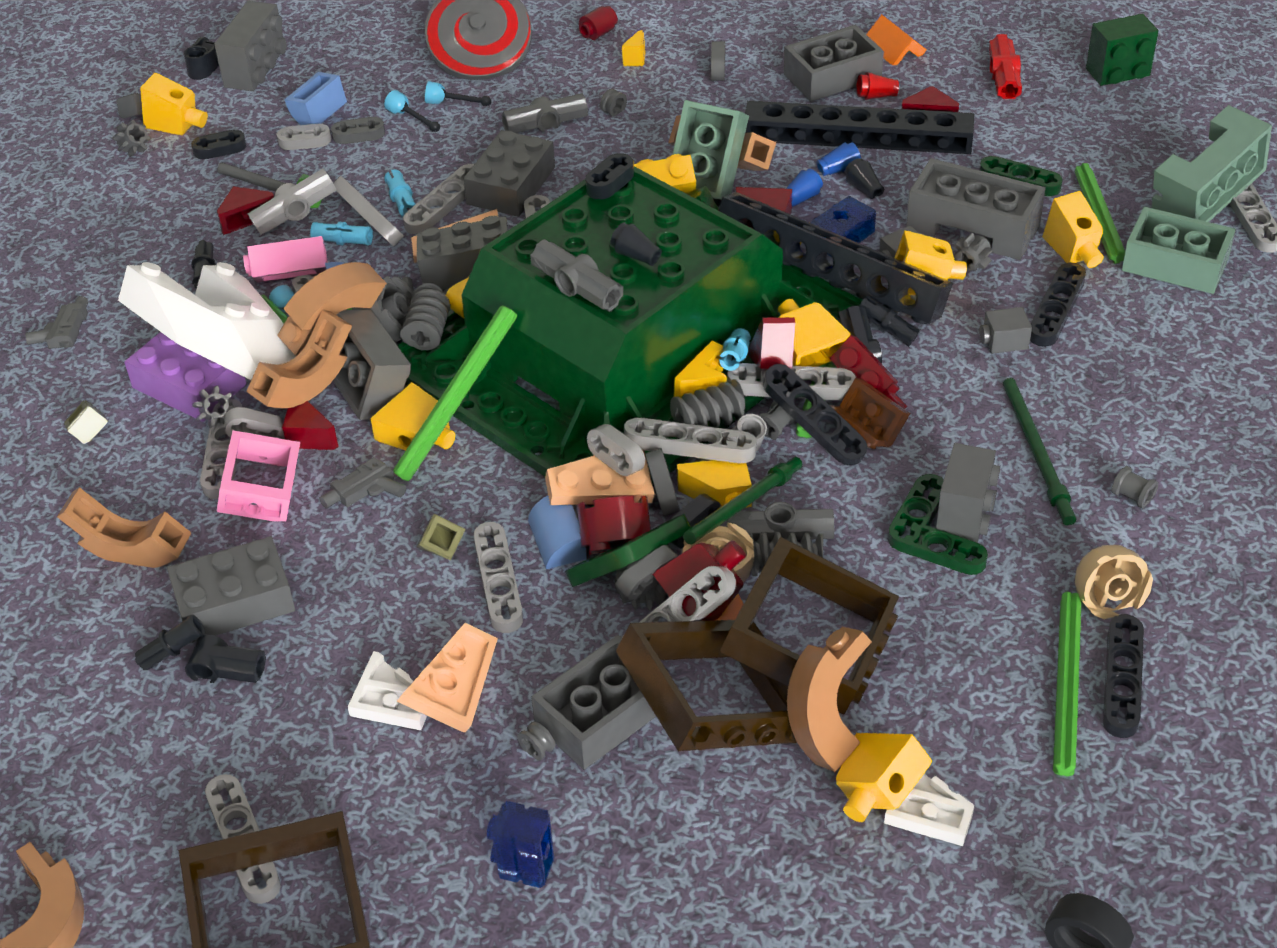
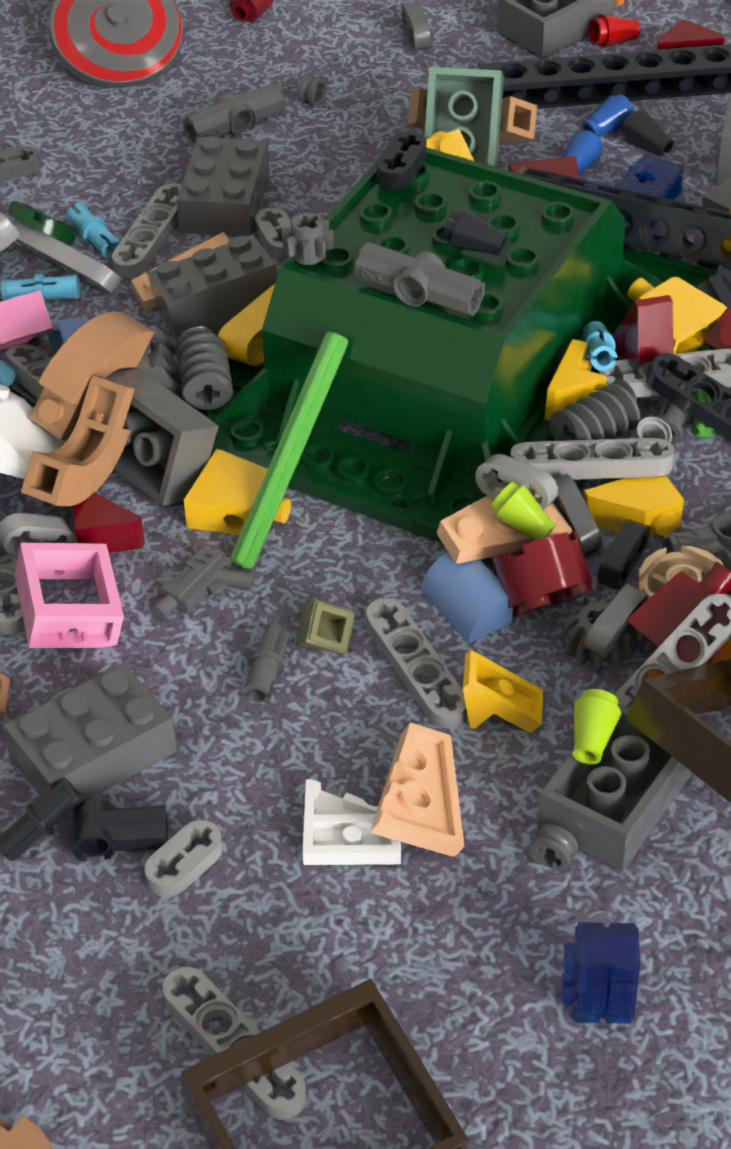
camera: 15 degrees left, 0 degrees up
(264, 693) = (179, 854): none -> light grey beam
(359, 180) = (42, 222): none -> dark green tile
(385, 556) = (266, 664): none -> dark grey axle
(398, 103) = (45, 126): hinge -> none
(436, 93) = (88, 108): hinge -> none
(506, 229) = (308, 238): none -> dark grey gear
(540, 609) = (497, 691): none -> yellow slope
(589, 651) = (594, 723): none -> lime cone
(609, 472) = (521, 511): none -> lime cone
(628, 552) = (582, 604): dark green beam -> none
(634, 50) = (312, 27): yellow slope -> none
(776, 476) = (701, 486): dark green bar -> none

